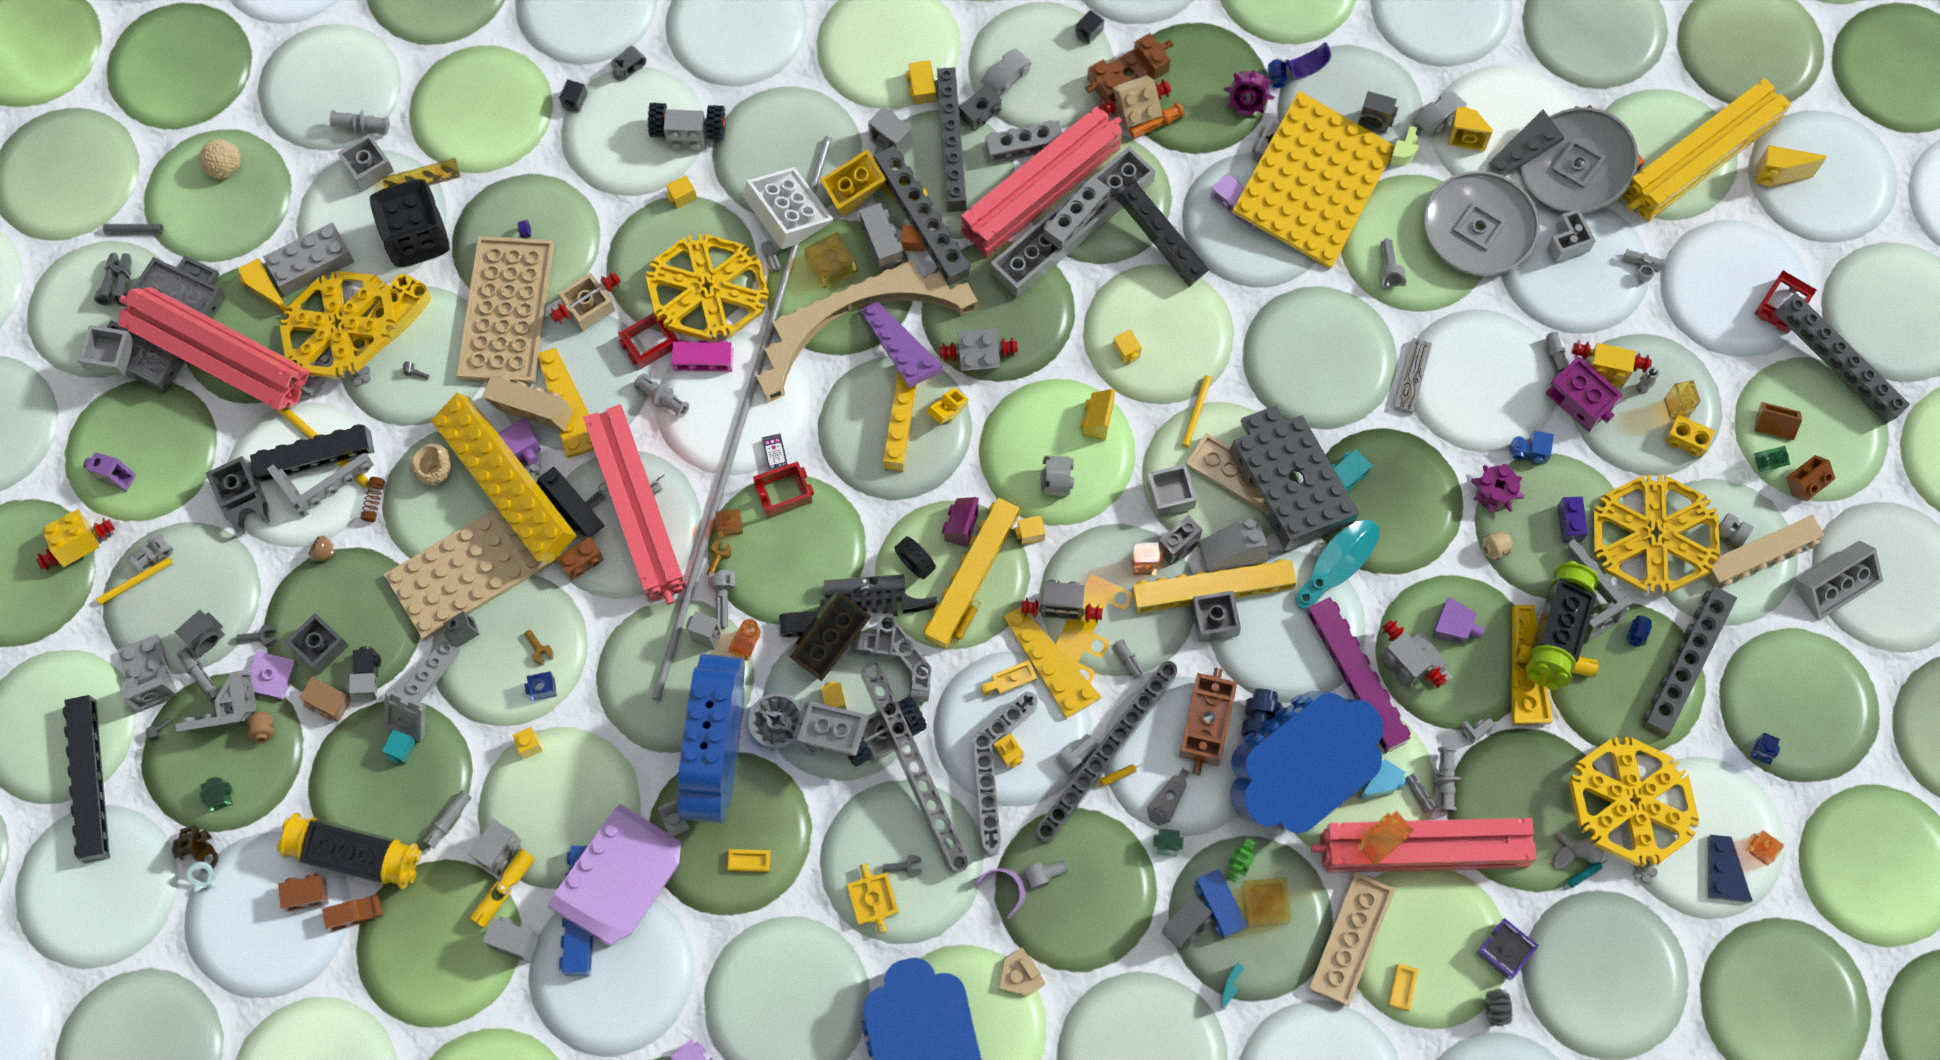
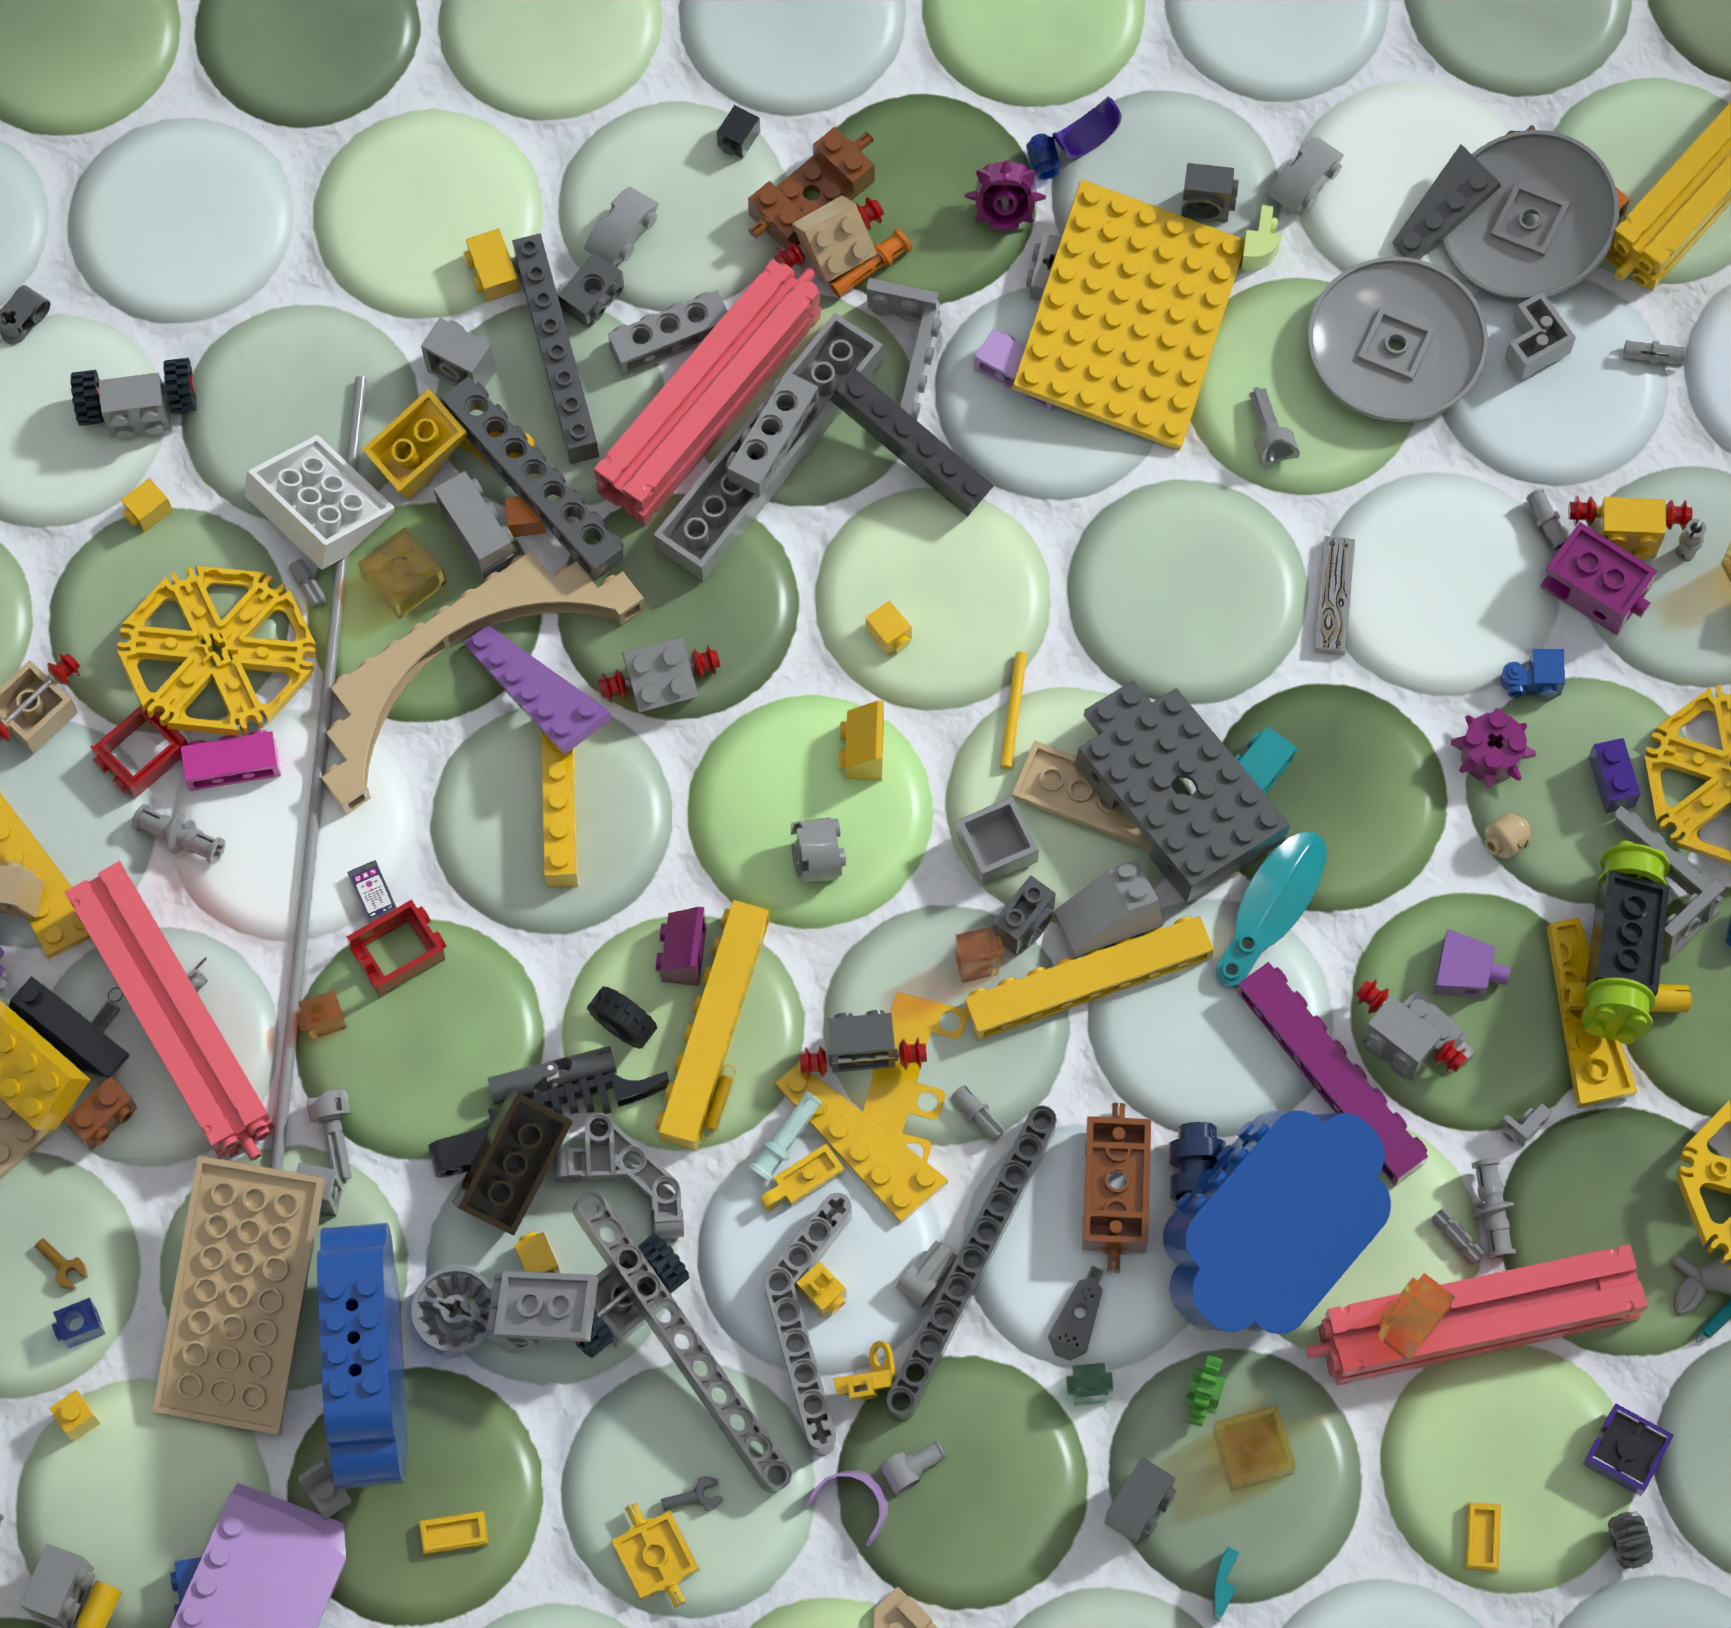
camera: 10 degrees left, 0 degrees up
(643, 686) = (239, 1295): none -> tan plate
(718, 556) = (315, 1070): pearl gold bar -> none
(744, 643) = (381, 1197): clear orange piece -> none
(948, 407) = (630, 771): yellow brick -> none
(997, 657) = (777, 1148): none -> light aqua pin
(1030, 530) = (792, 941): yellow brick -> none
(1033, 814) = (877, 1379): none -> yellow piece
(1119, 774) = (994, 1295): yellow piece -> none
(1178, 150) = (911, 305): none -> light grey bracket
(1216, 616) = (1100, 1023): dark grey brick -> none
(1221, 903) = (1187, 1461): blue brick -> none
(1351, 939) = (1393, 1478): tan plate -> none
(1385, 782) = (1402, 1229): medium azure slope -> none
(1469, 130) = (1353, 196): yellow slope -> none
(1645, 273) = (1661, 373): light grey hinge -> none

